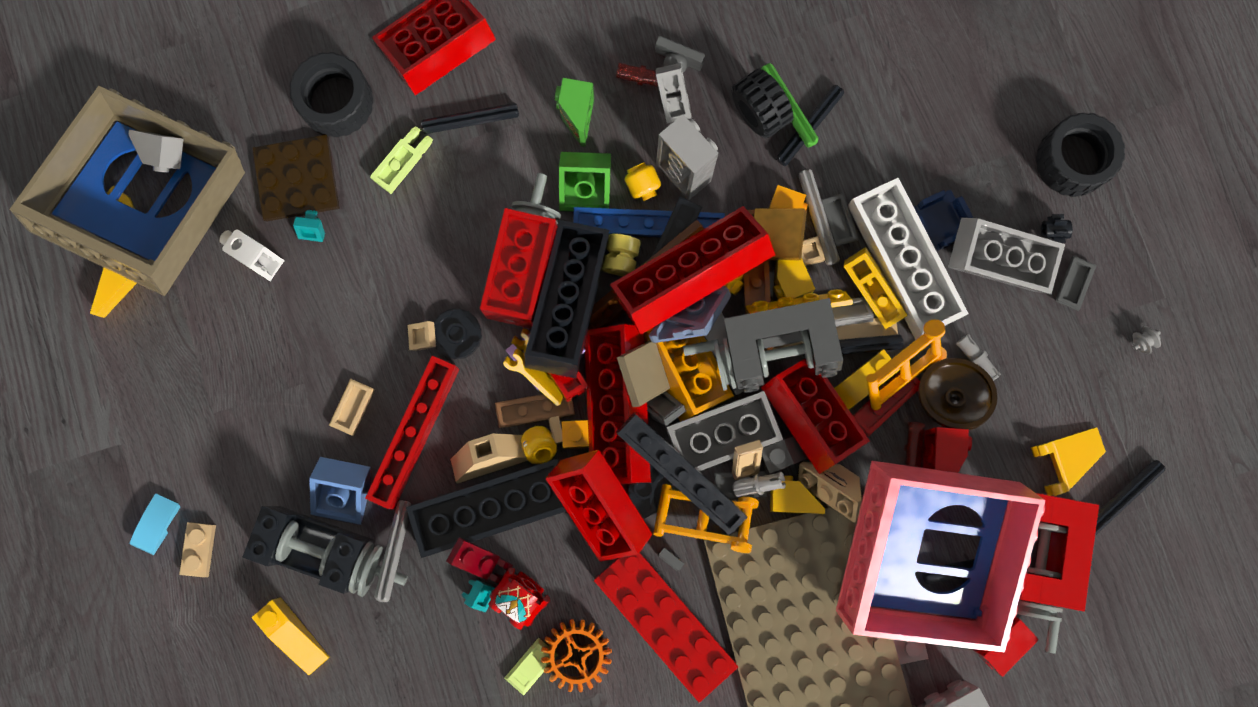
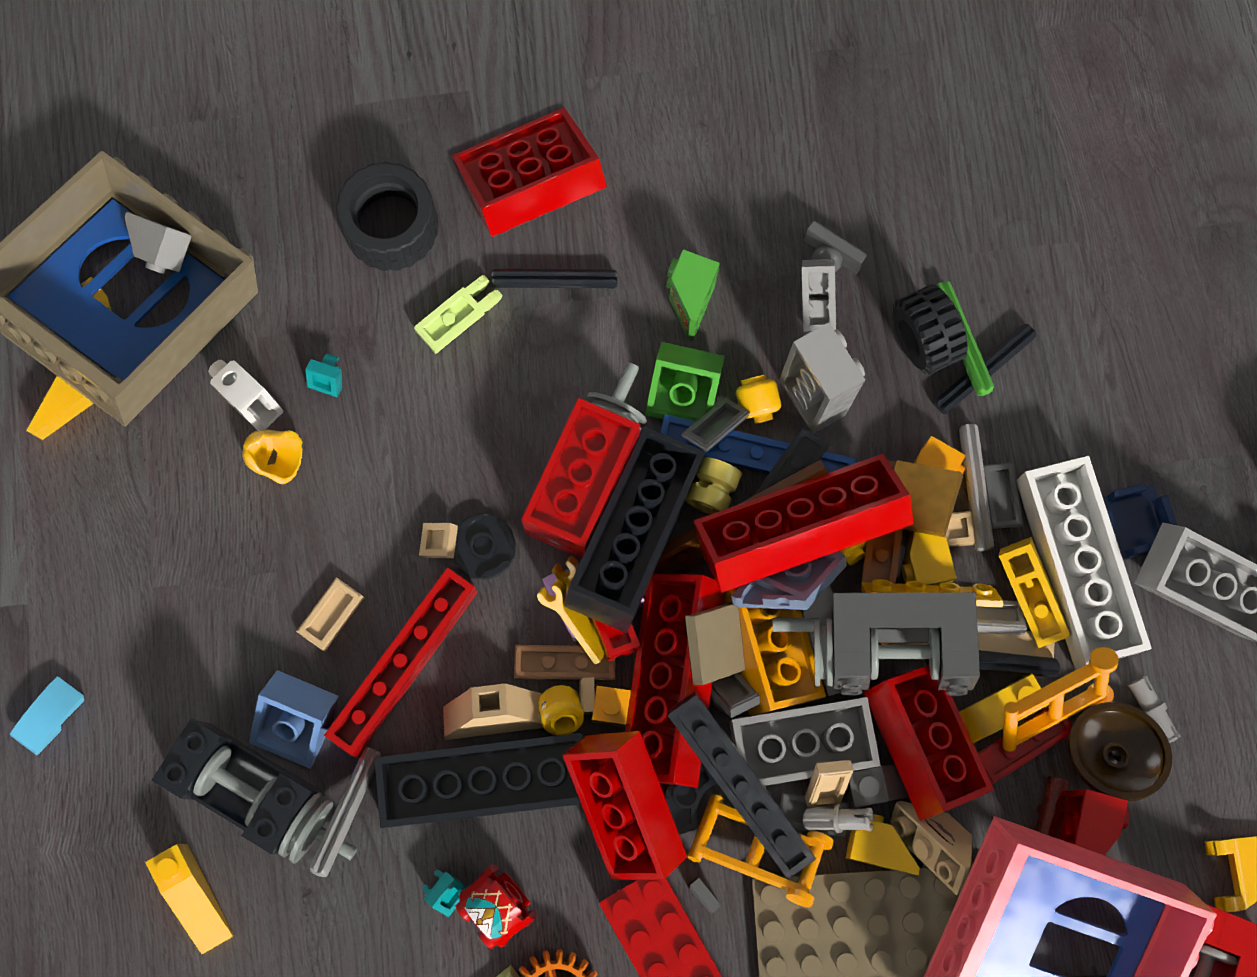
camera: 10 degrees right, 5 degrees down
(197, 549) = (94, 760): tan plate -> none
(271, 291) = (258, 450): none -> yellow hair
(295, 178) = (320, 311): dark brown plate -> none
(476, 560) = (451, 845): dark red hinge -> none
(613, 207) = (715, 424): none -> dark grey tile
(637, 74) = (777, 264): clear red pin -> none

